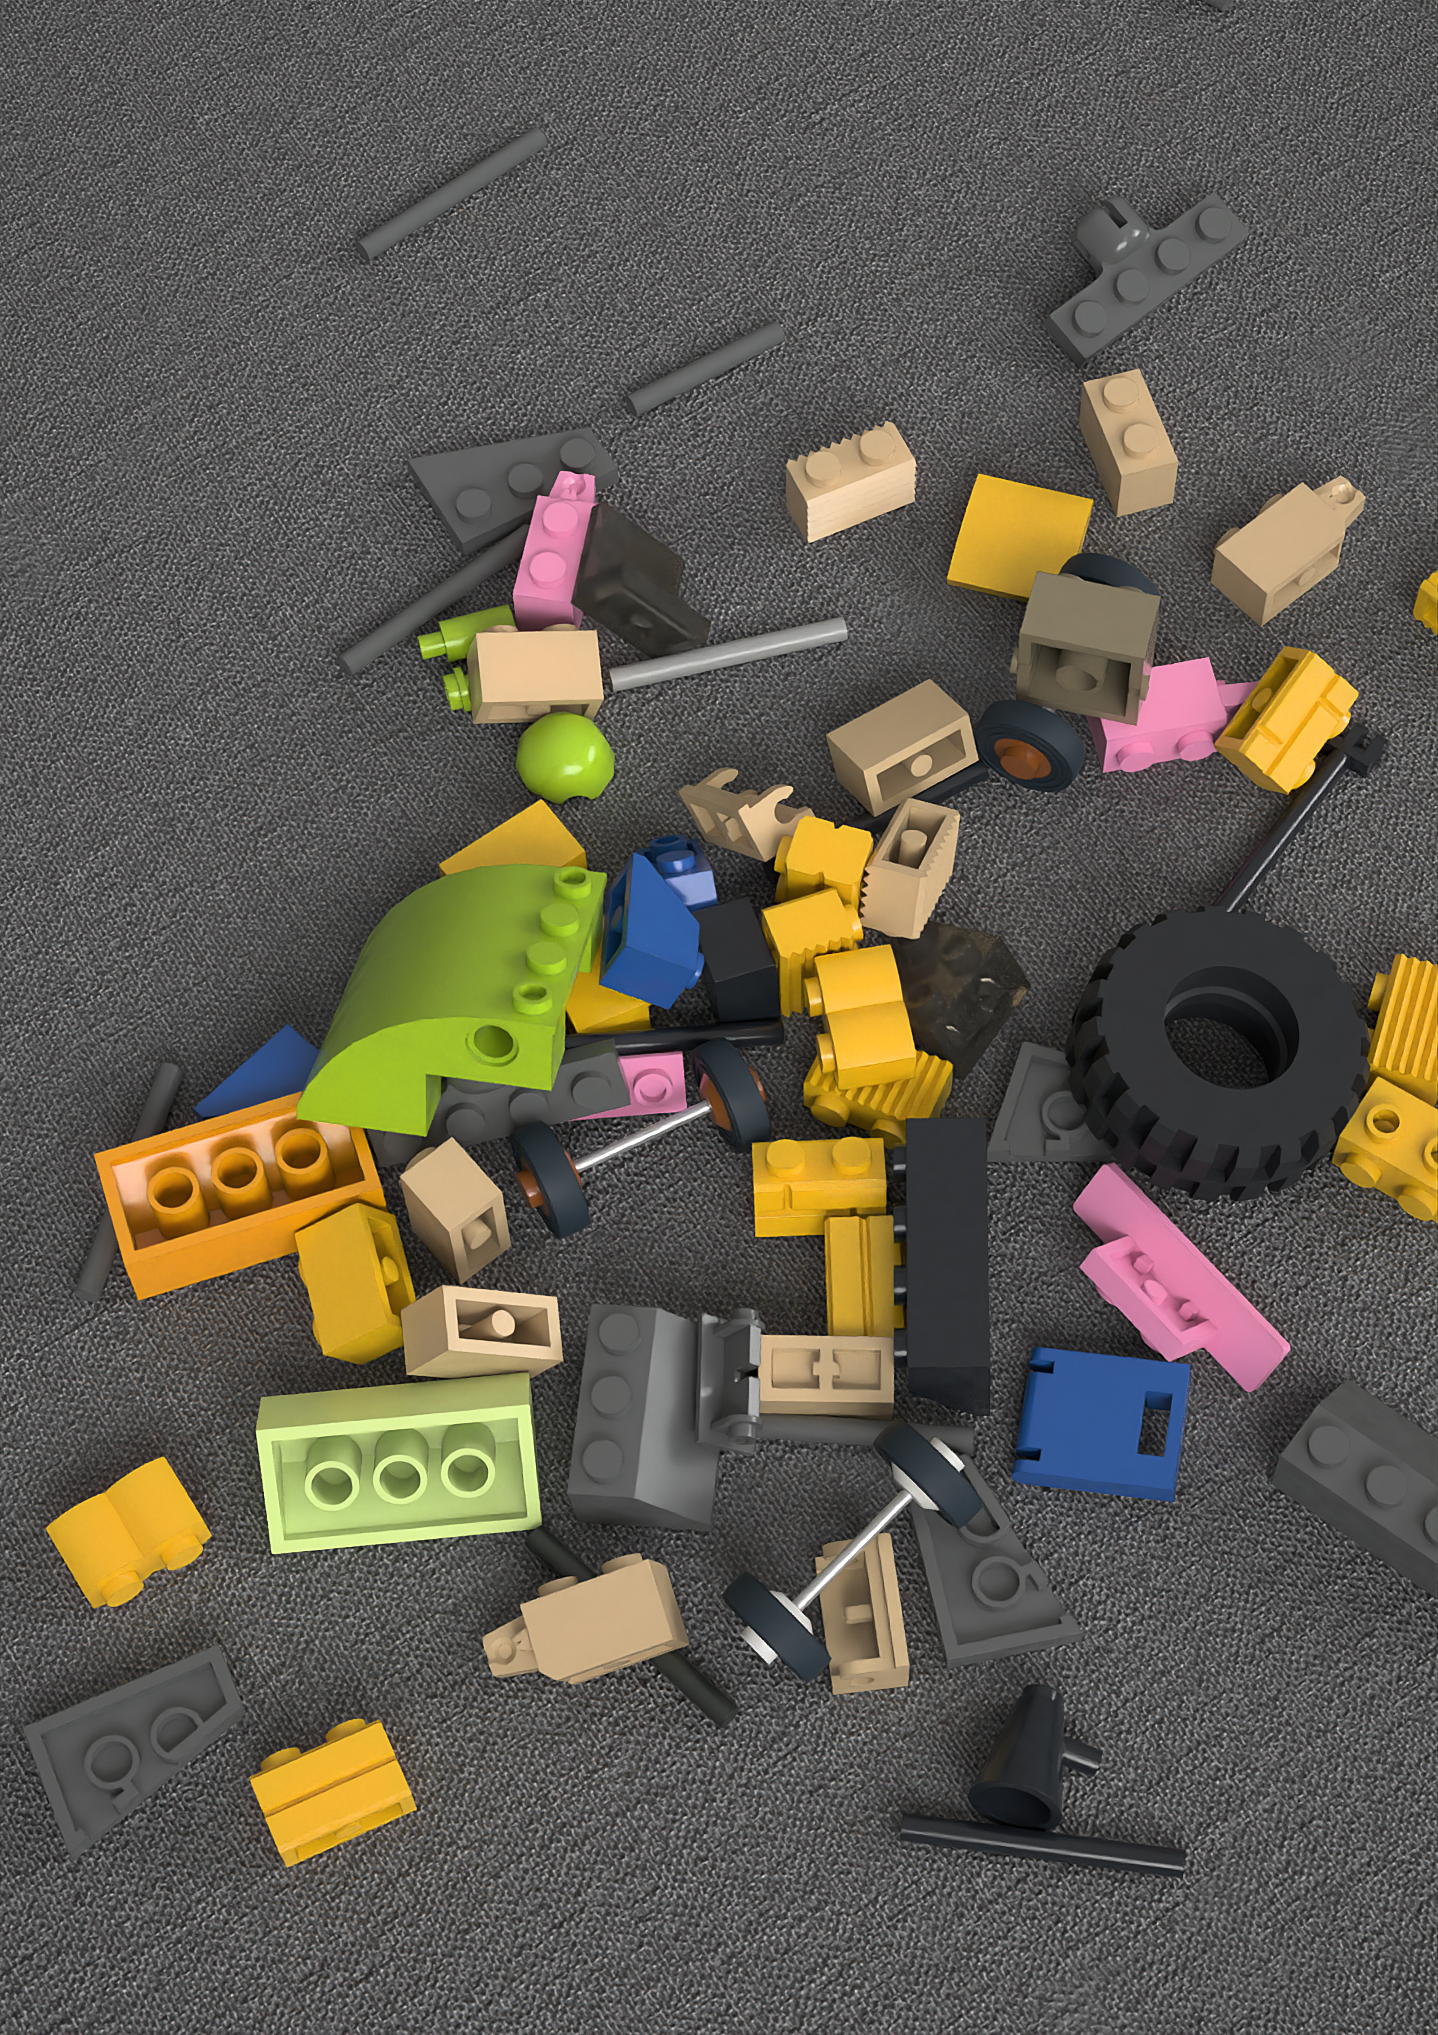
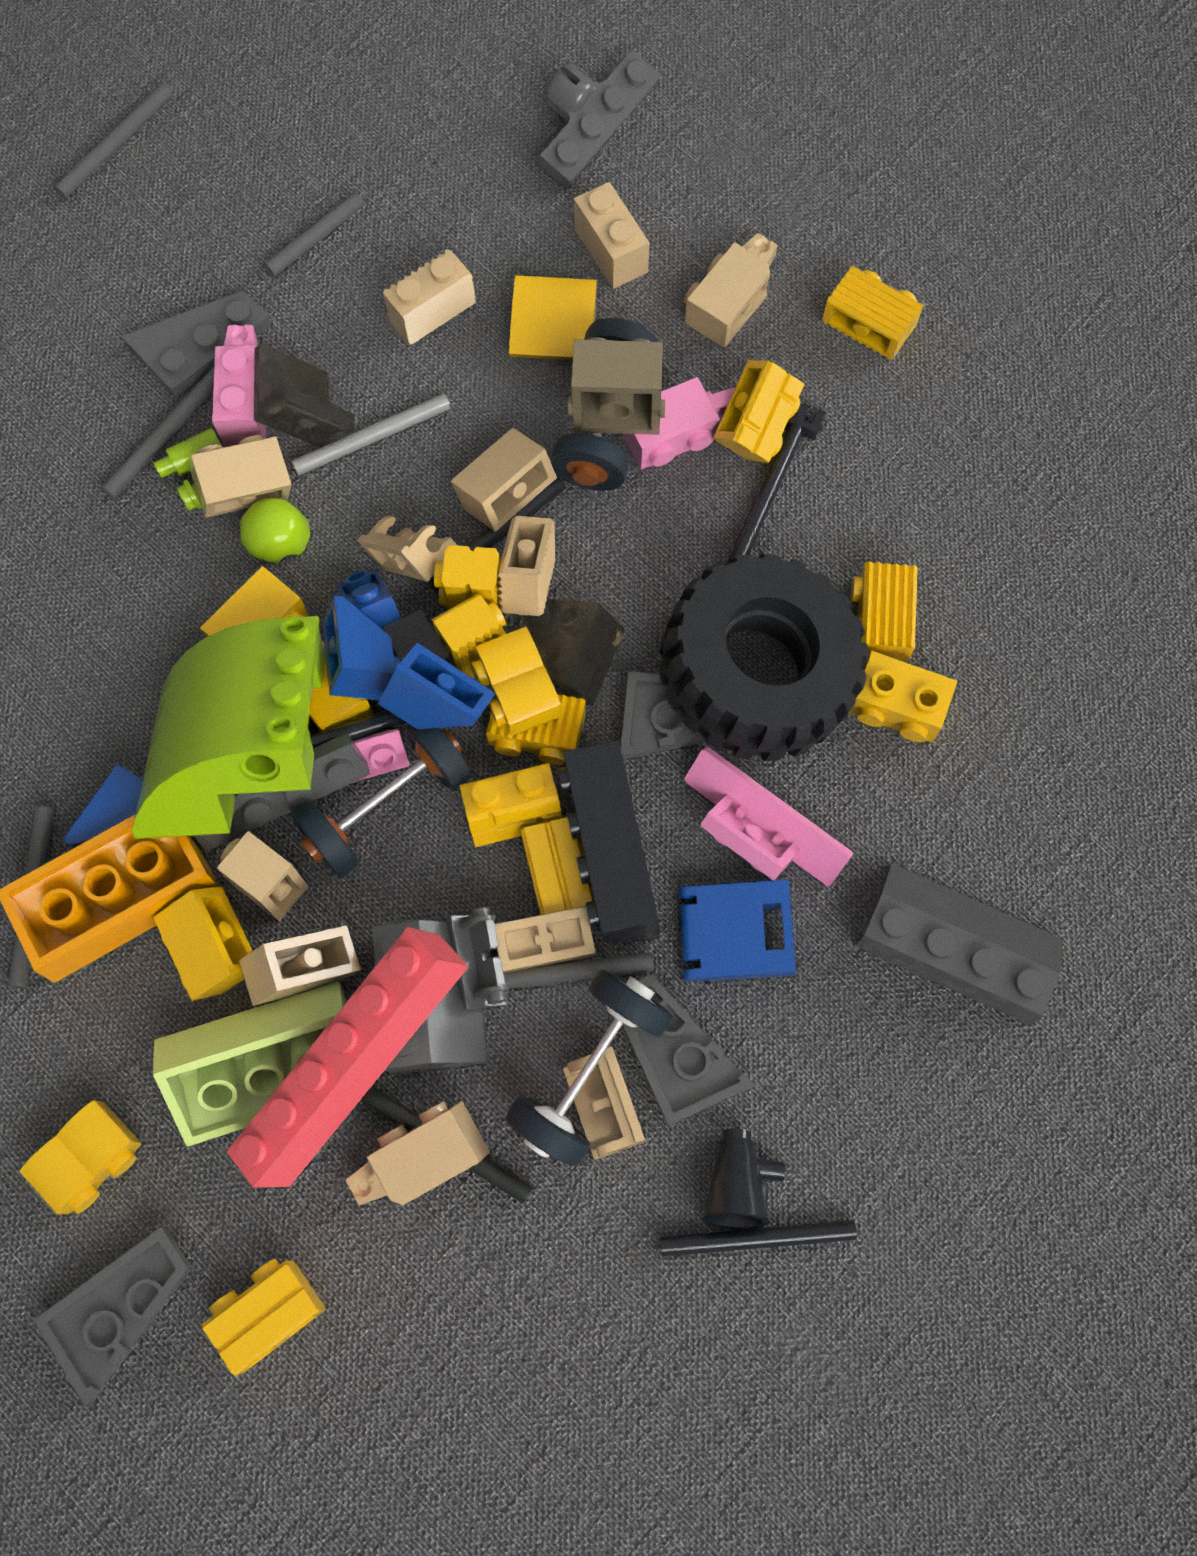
camera: 15 degrees left, 10 degrees up
(522, 1463) = (347, 1058): none -> coral brick
(742, 1004) = (433, 692): none -> blue slope

